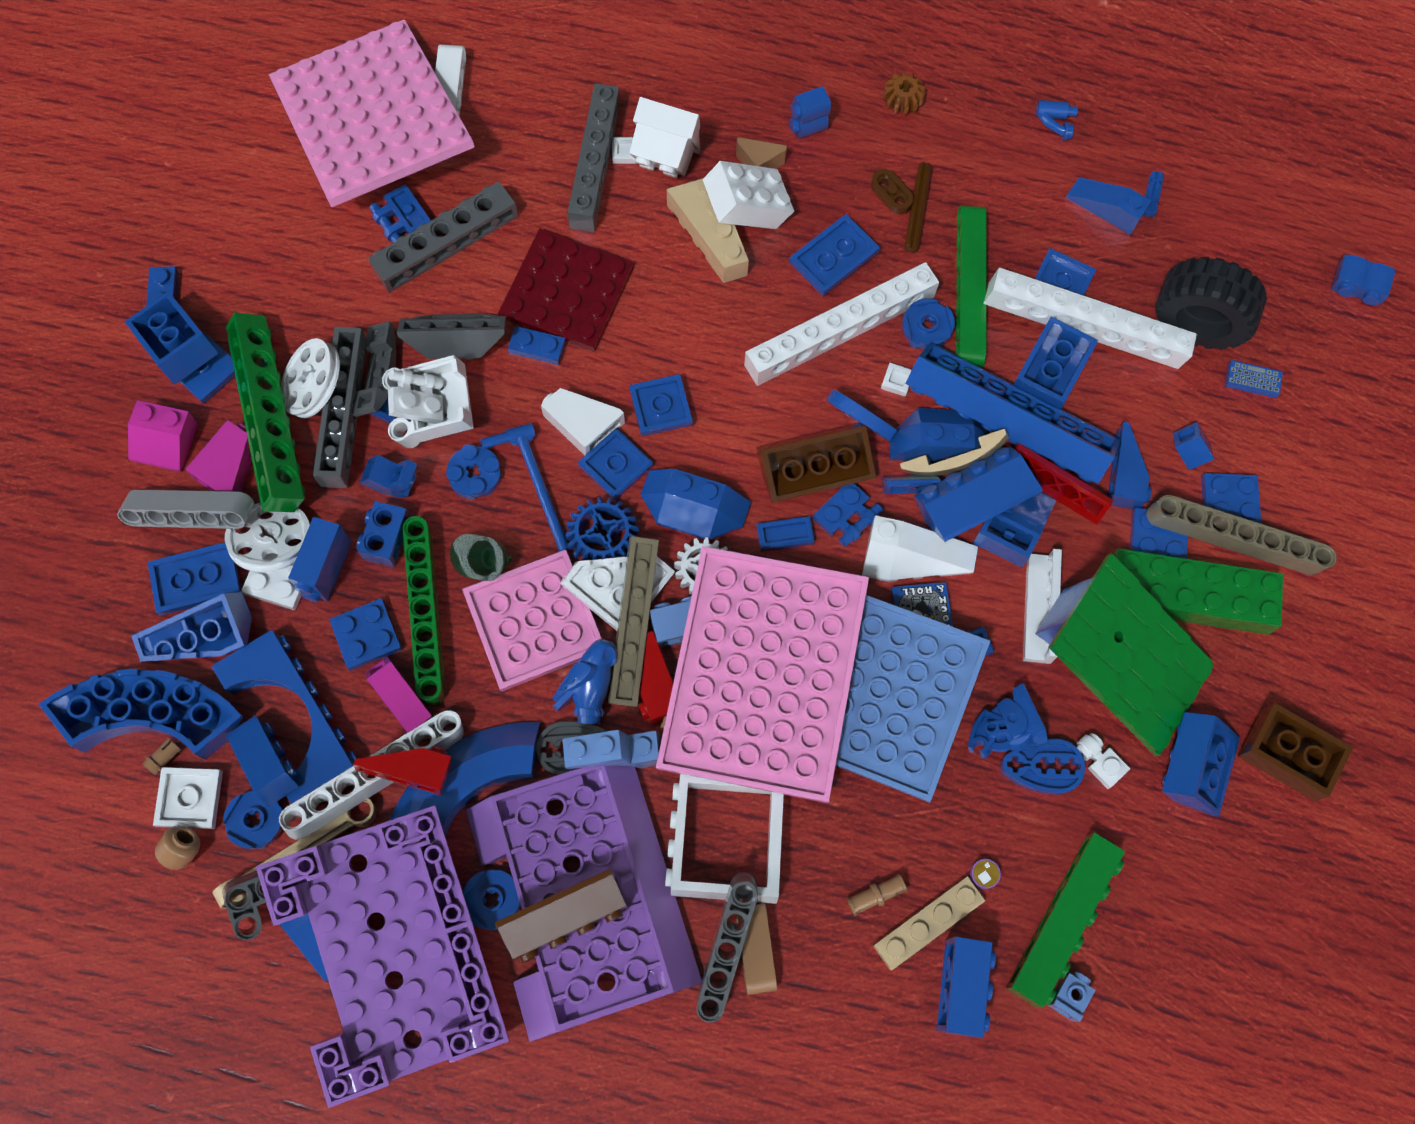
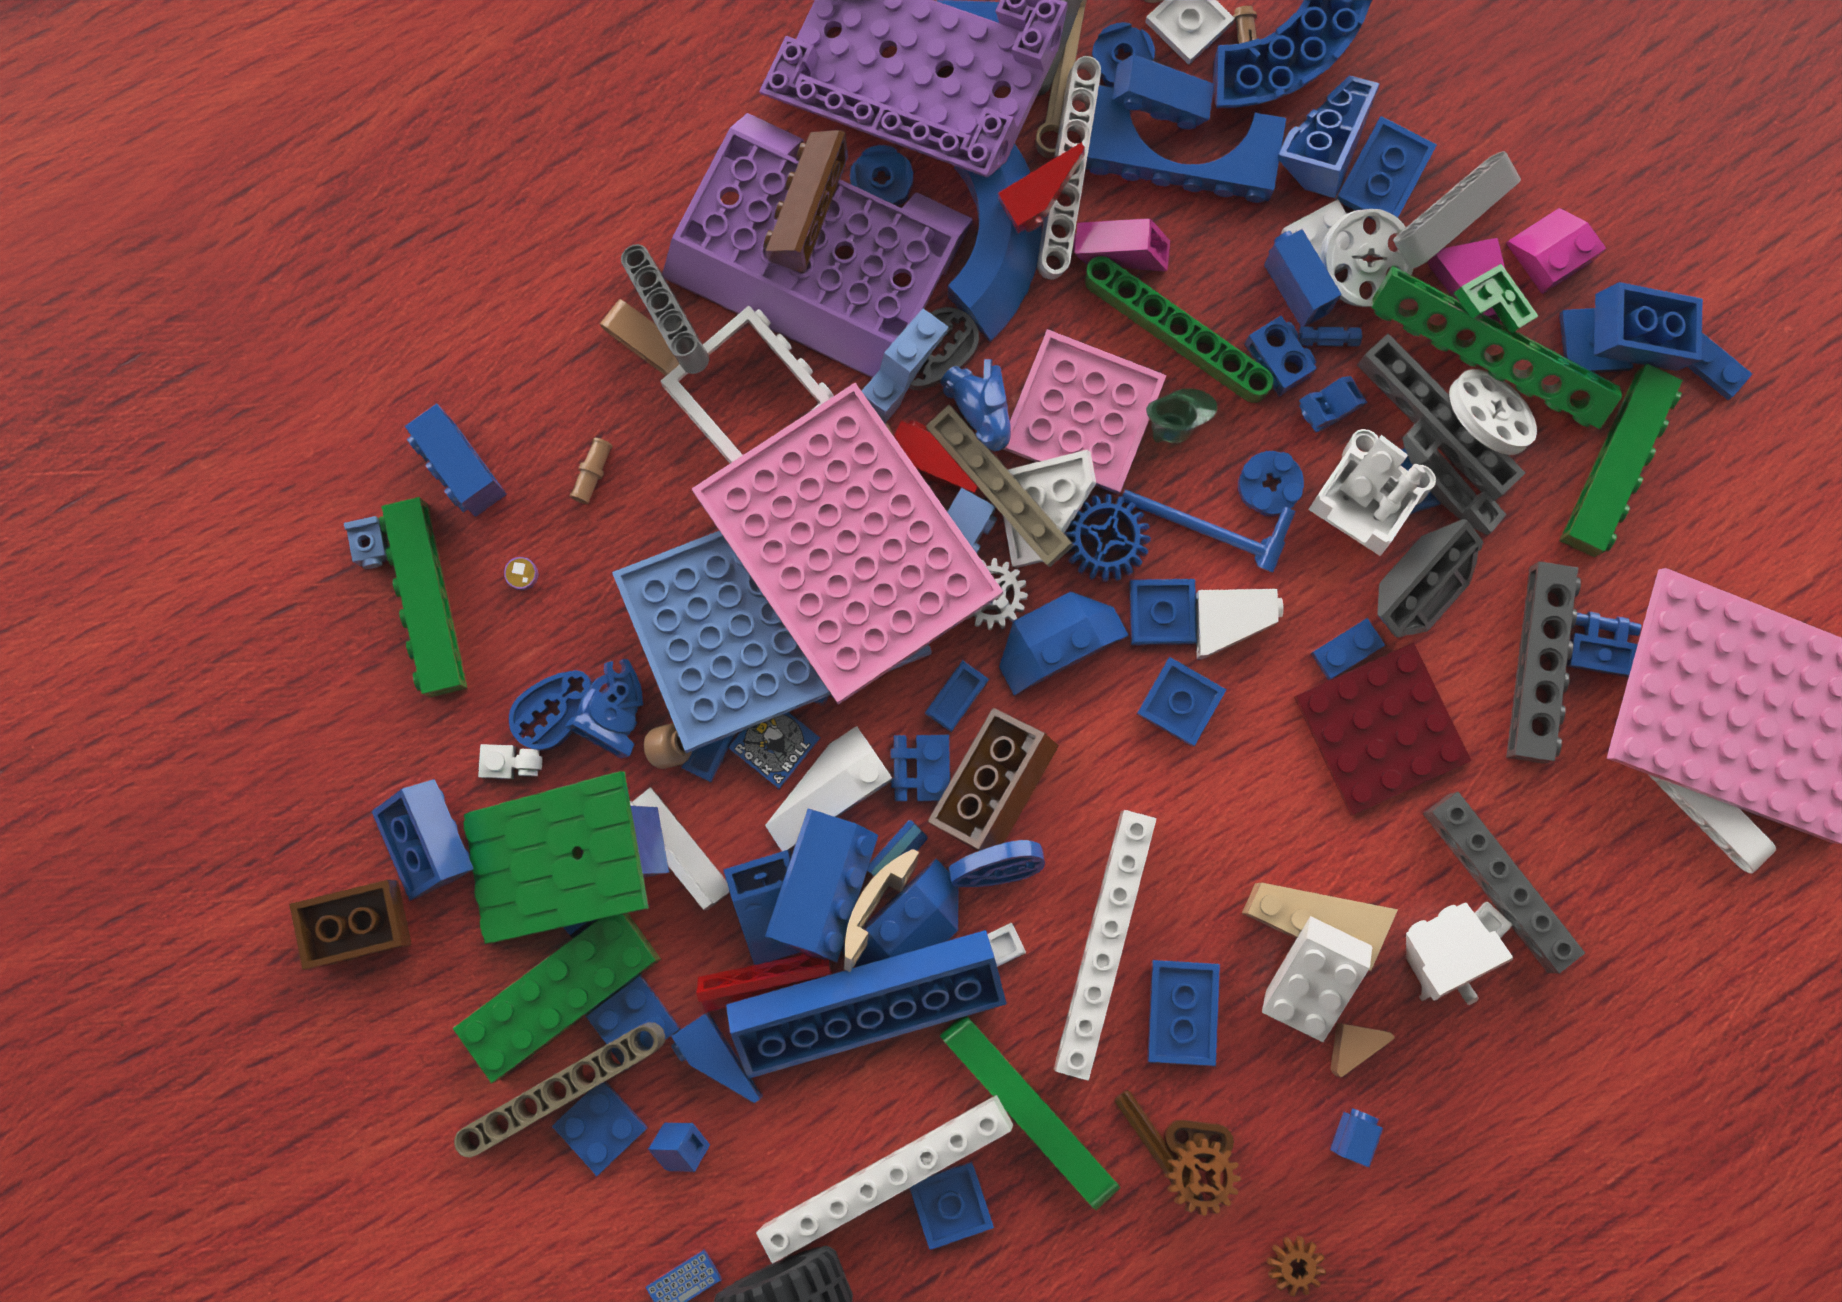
camera: 140 degrees right, 10 degrees up
(228, 432) = (1497, 291): none -> plate
(274, 291) = (1621, 461): none -> green brick
(342, 517) = (1330, 336): none -> blue axle
(365, 634) = (1202, 268): blue plate -> none
(898, 167) = (1192, 1187): none -> dark orange gear
(921, 336) = (1032, 1047): blue plate -> none
(928, 923) = (530, 492): tan plate -> none
(995, 670) = (664, 747): none -> medium nougat head
(1055, 362) = (874, 1097): blue brick -> none

